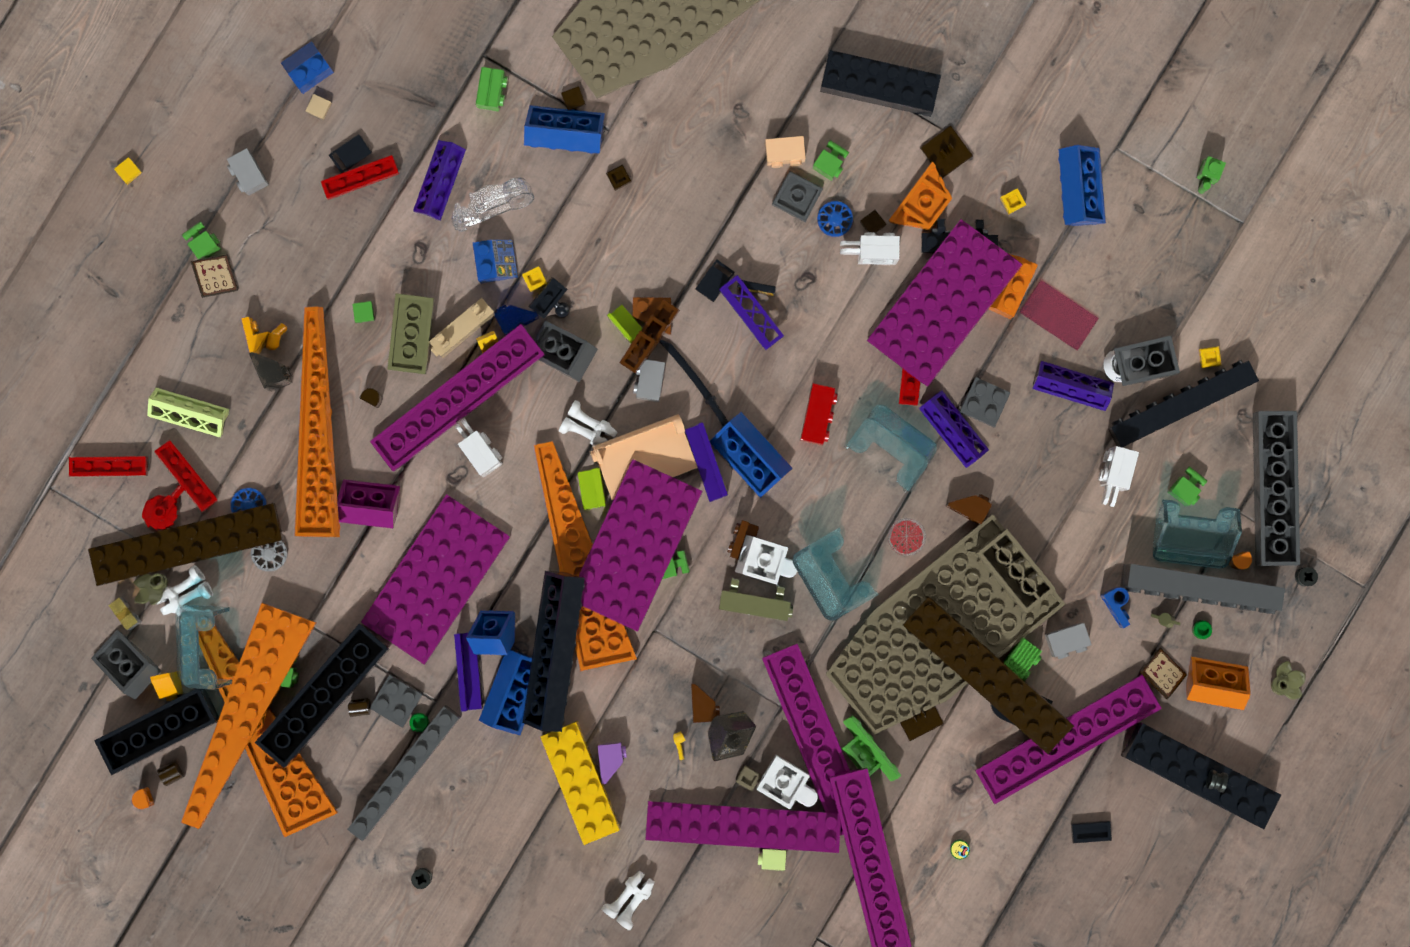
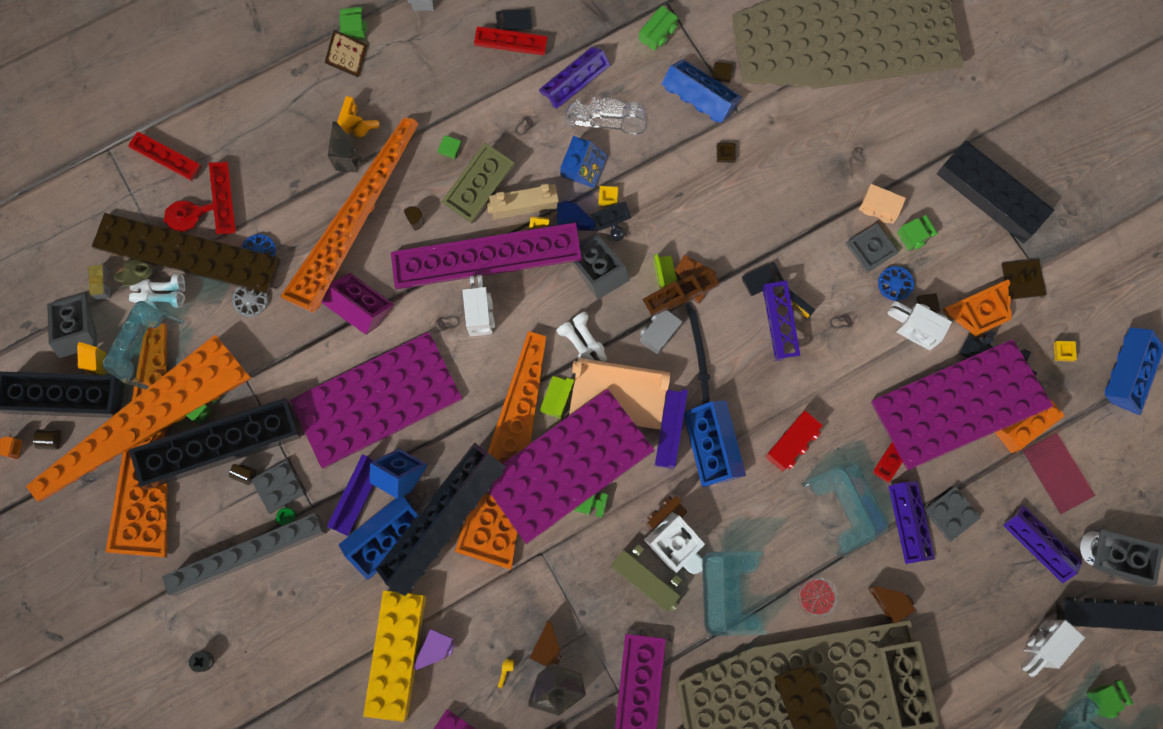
camera: 30 degrees right, 10 degrees down
(187, 408) = (256, 143): yellowish green fence -> none

